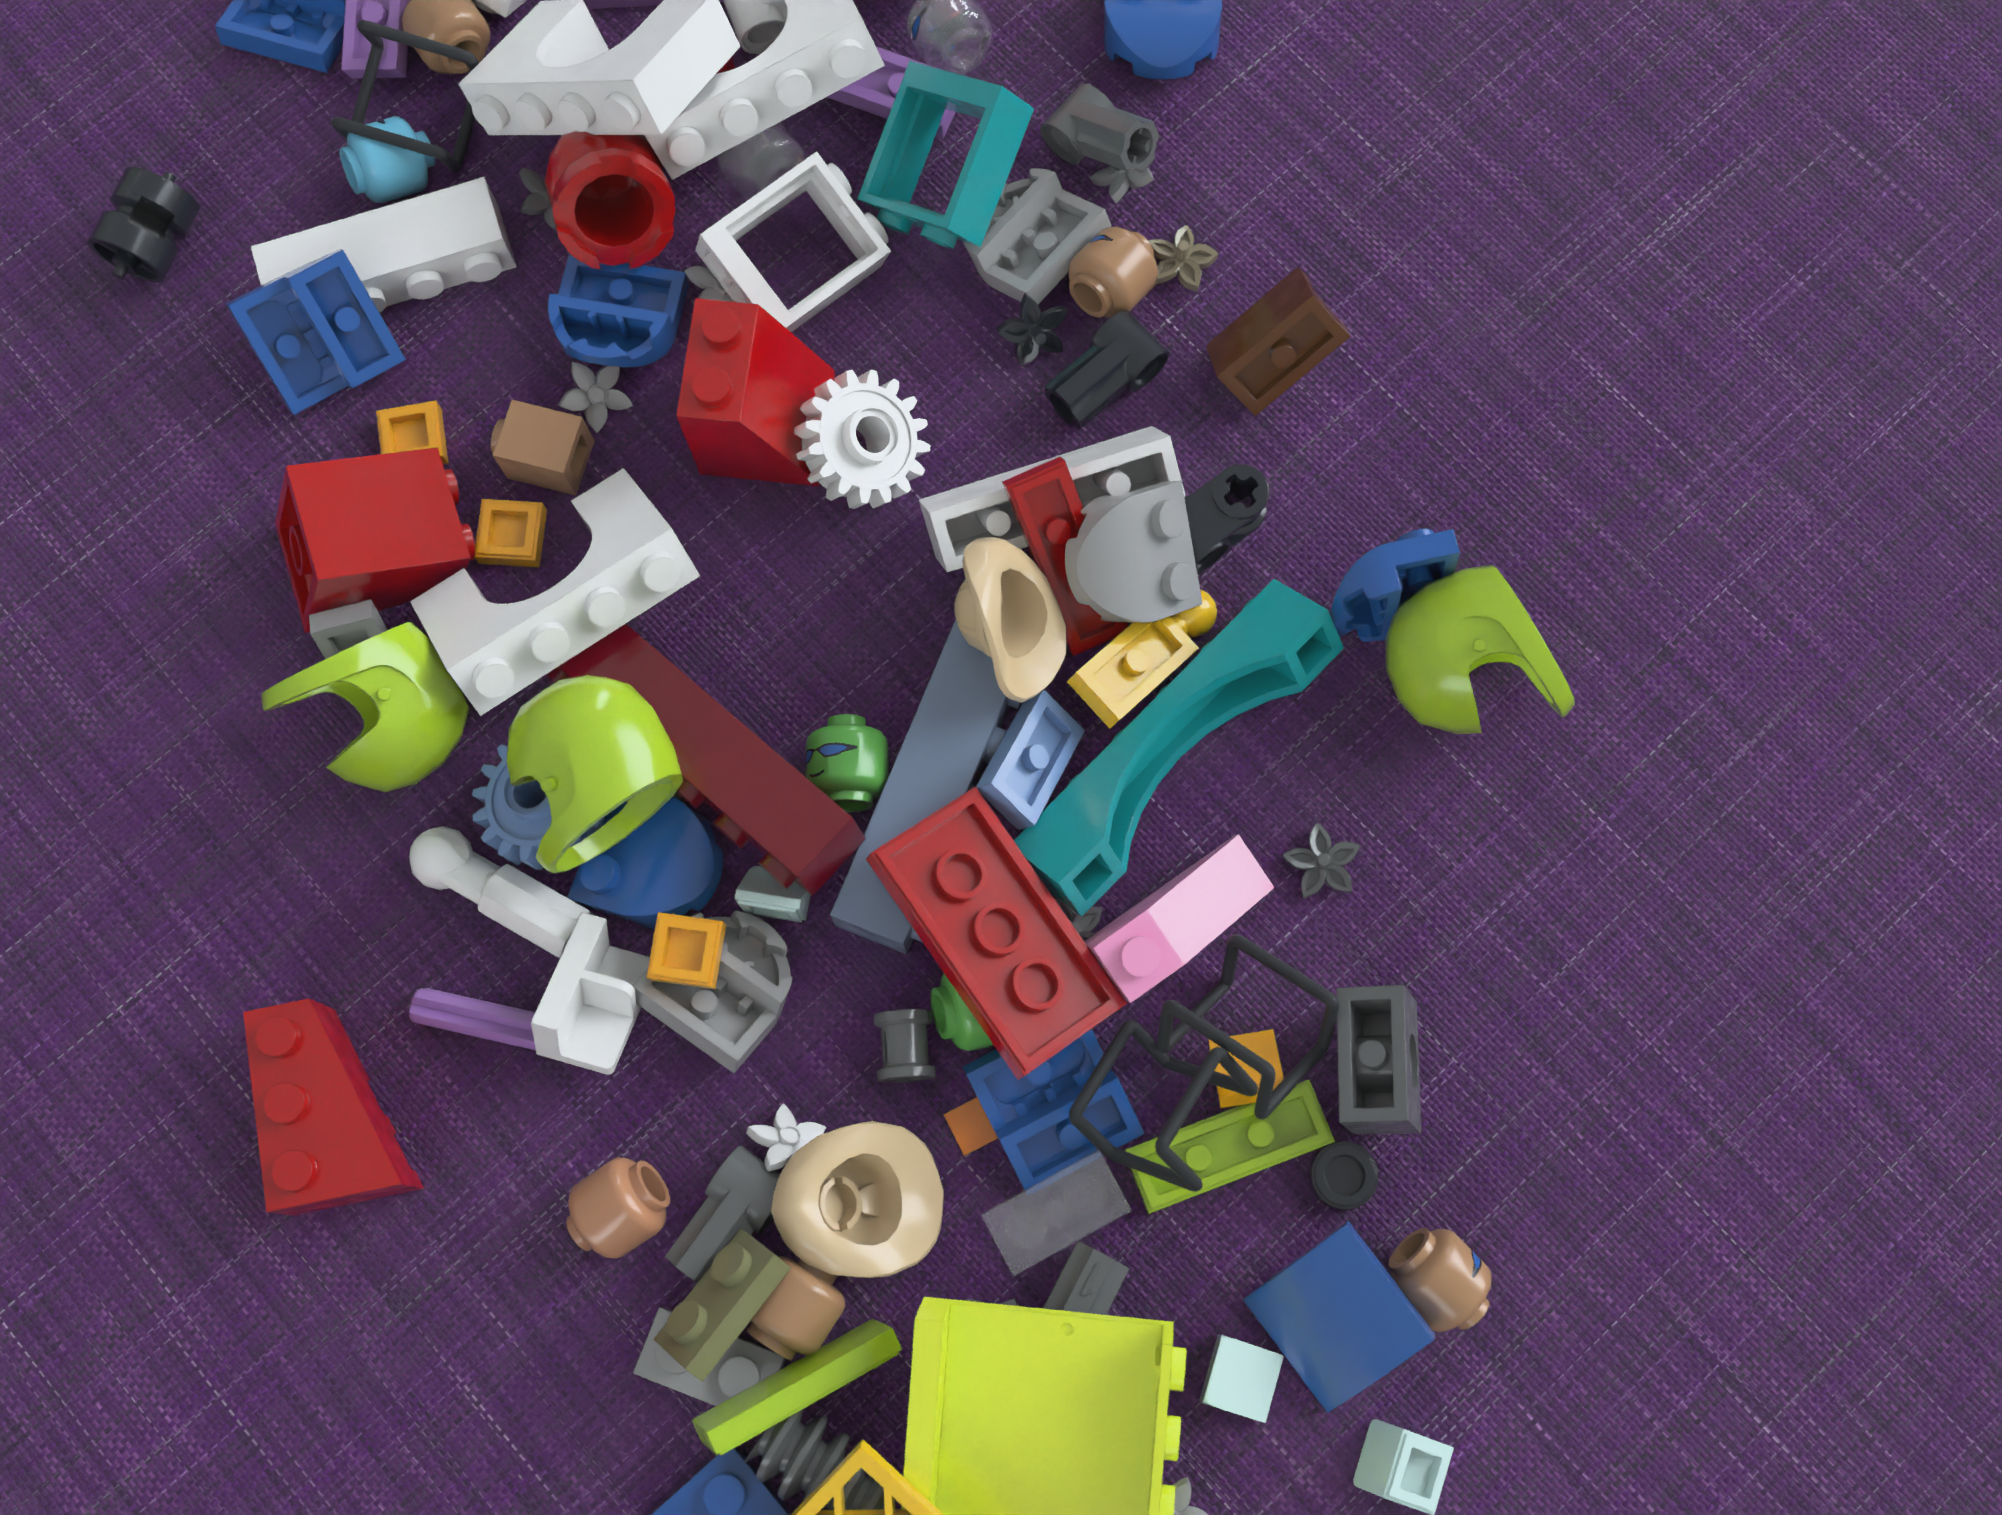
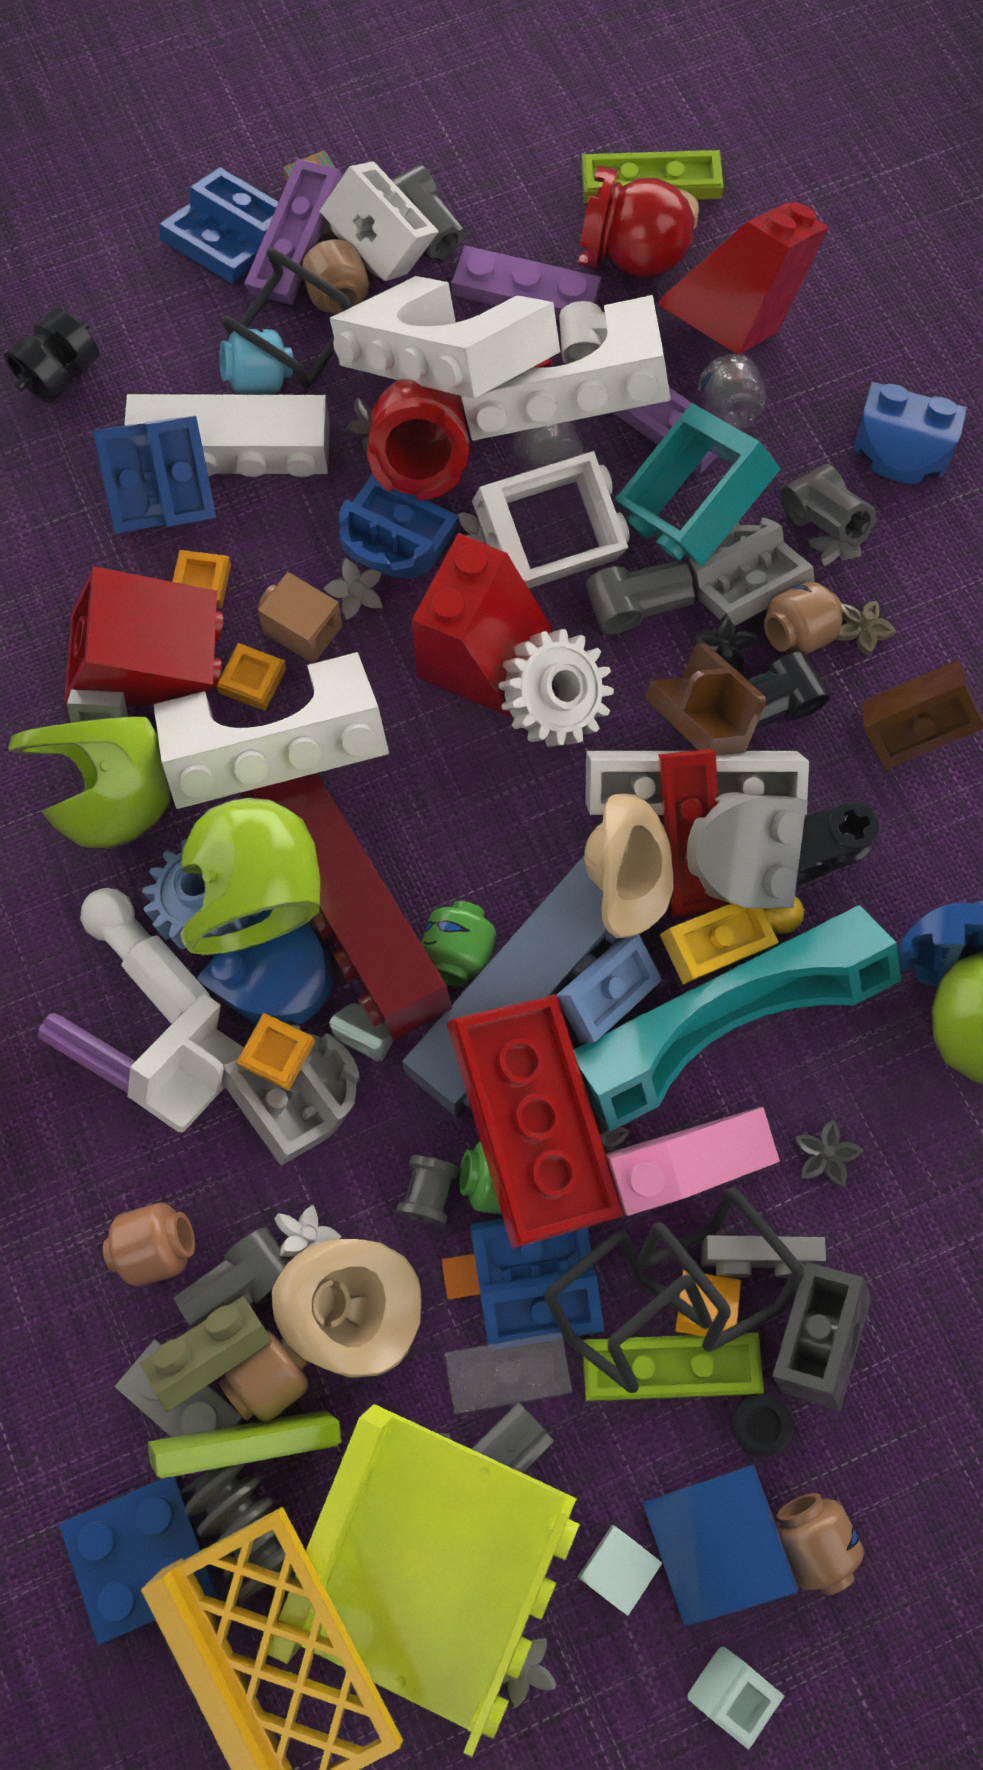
camera: 15 degrees right, 5 degrees down
(907, 308) = (626, 598): none -> dark grey piece
(1039, 403) = (710, 703): none -> reddish brown panel
(1260, 1004) = (738, 1254): none -> light grey plate

